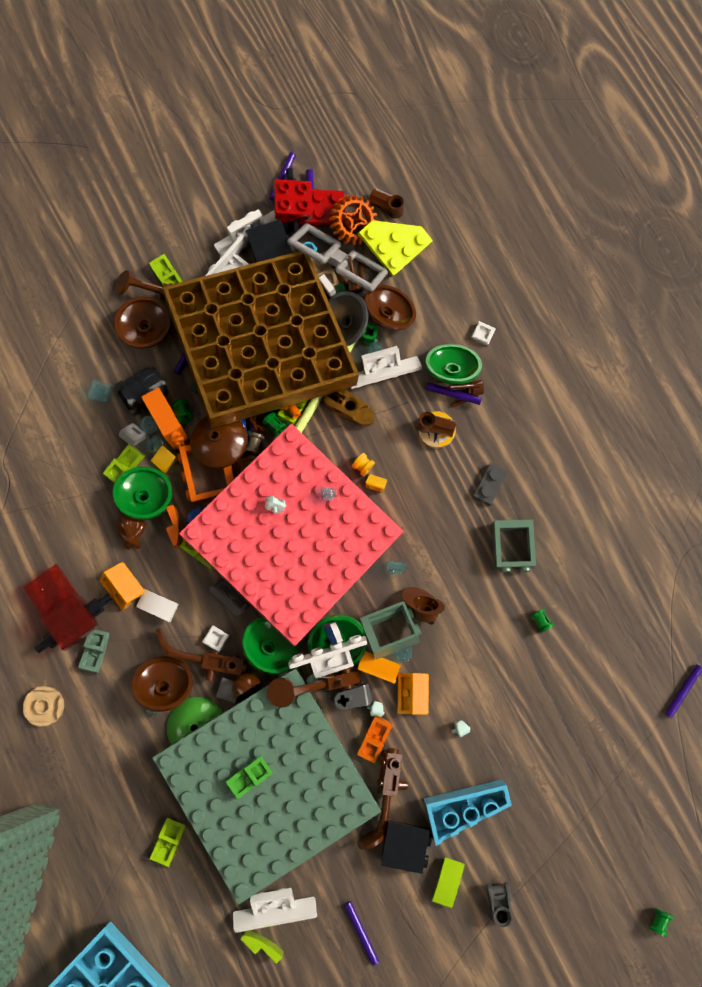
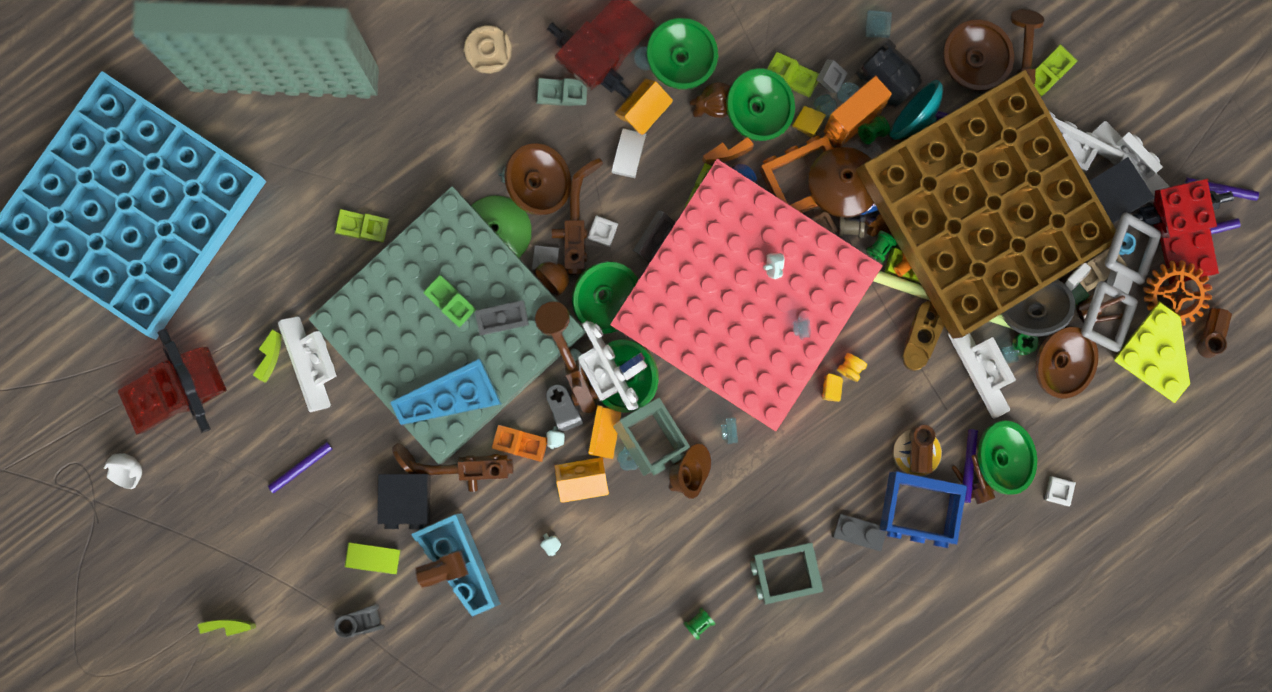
camera: 80 degrees right, 5 degrees up
(75, 541) = (686, 39): none -> green dish
(82, 576) = (641, 58): none -> clear light blue plate
(176, 374) = (918, 112): none -> teal dish
(272, 735) = (502, 318): none -> dark grey plate
(326, 785) = (451, 394): none -> dark azure wing
(470, 819) = (447, 568): none -> reddish brown piece
(492, 413) = (954, 513): none -> blue window

